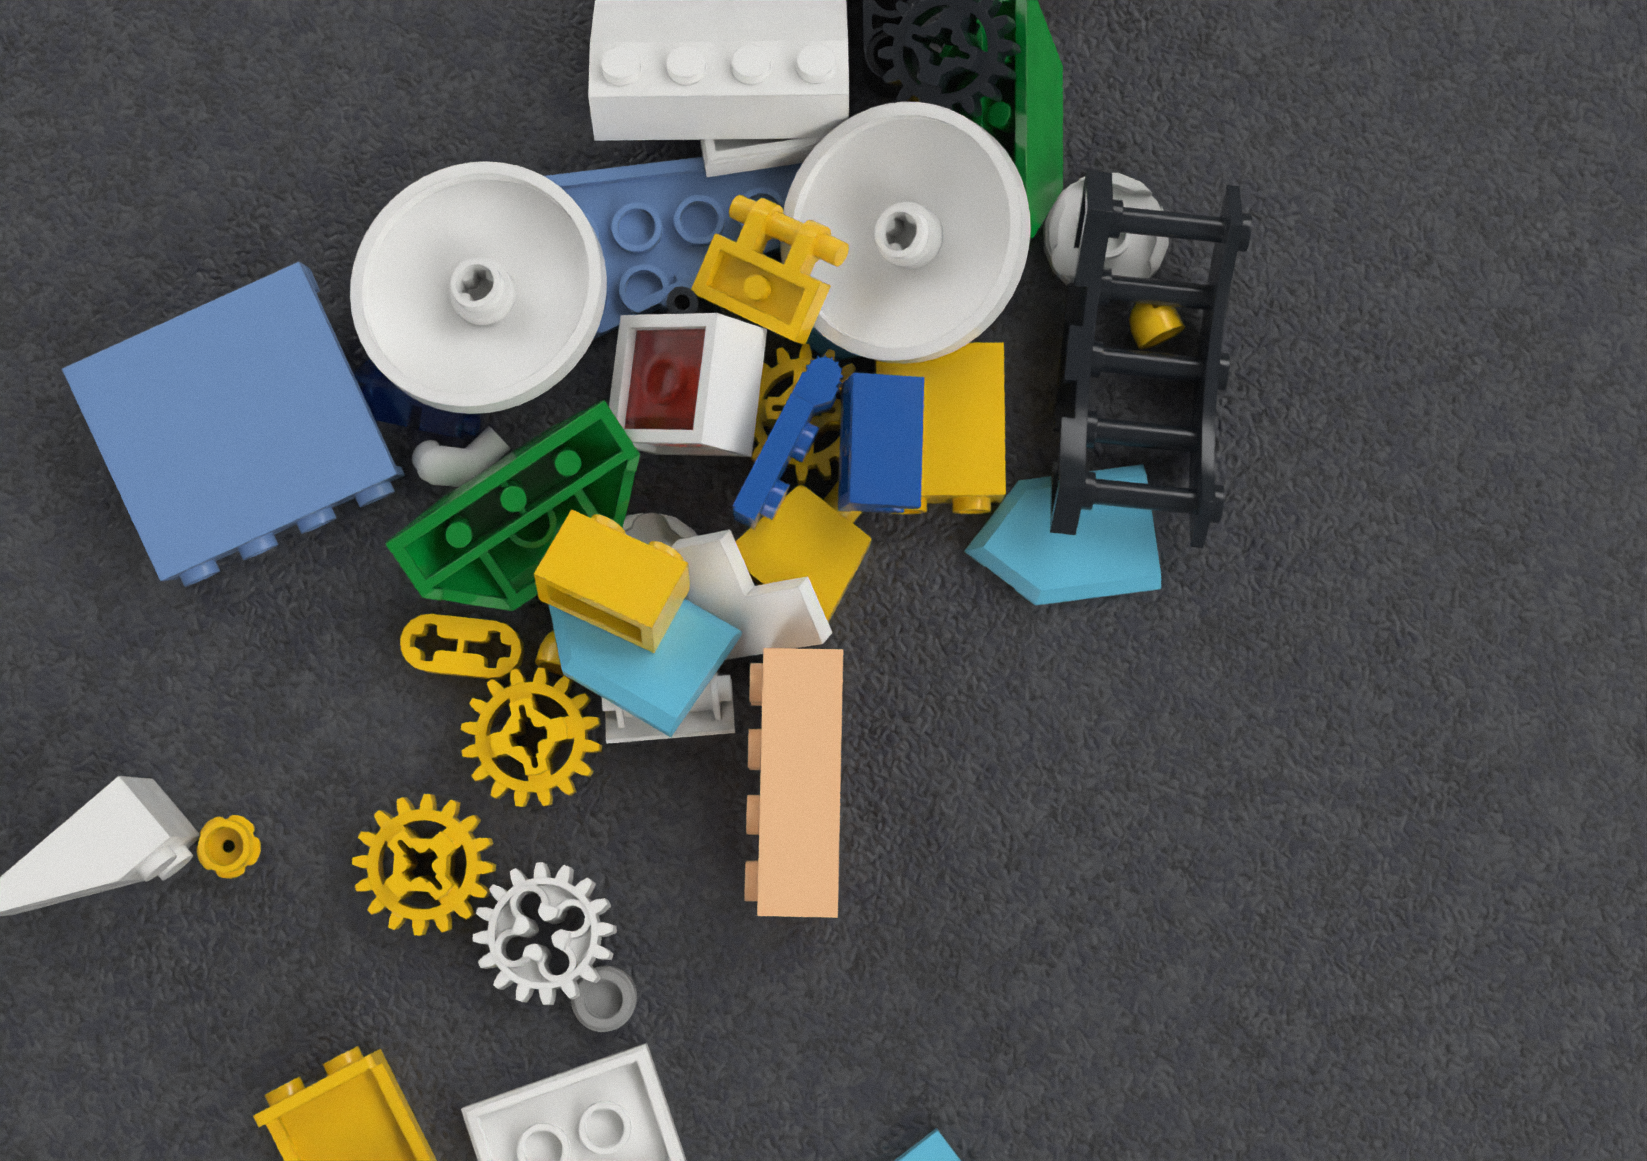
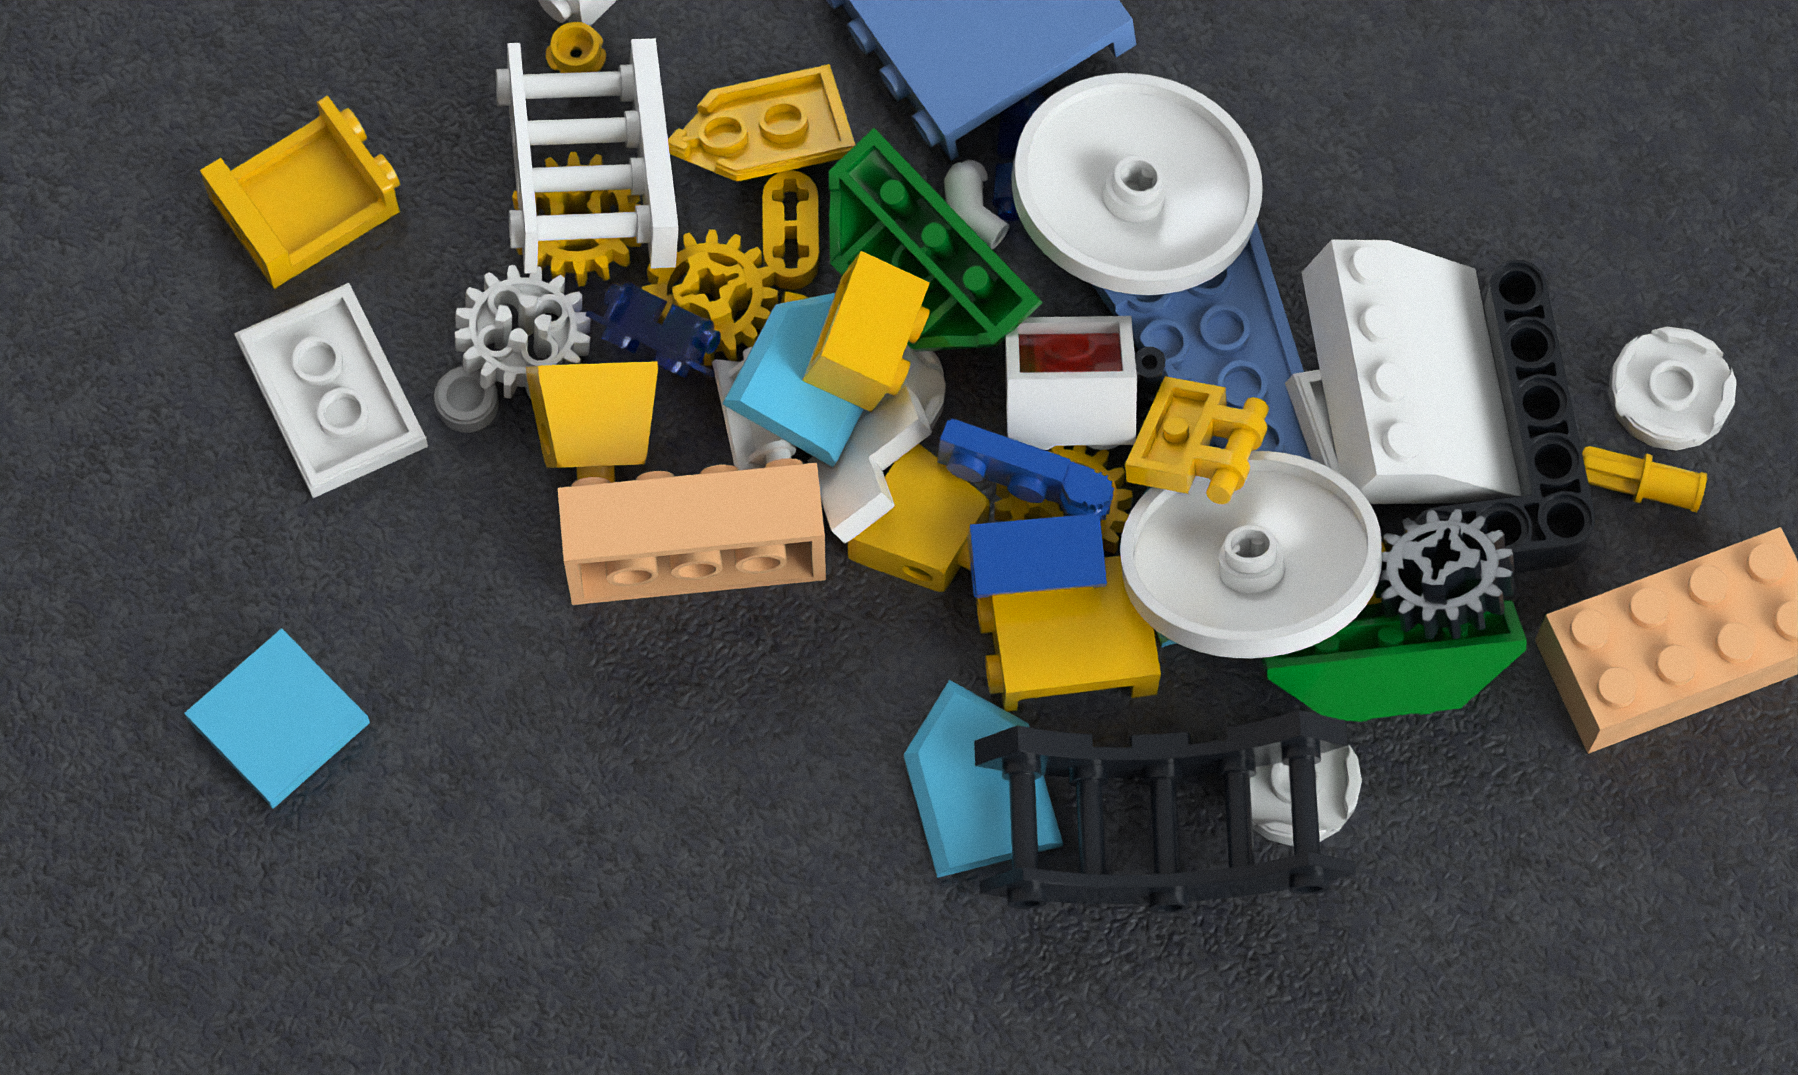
camera: 85 degrees right, 15 degrees down
(339, 788) = (641, 129): none -> white fence
(347, 656) = (767, 126): none -> yellow tile
(587, 778) = (678, 341): none -> clear blue hinge
(657, 869) = (593, 414): none -> yellow torso
(1154, 324) = (1207, 834): yellow hinge -> none

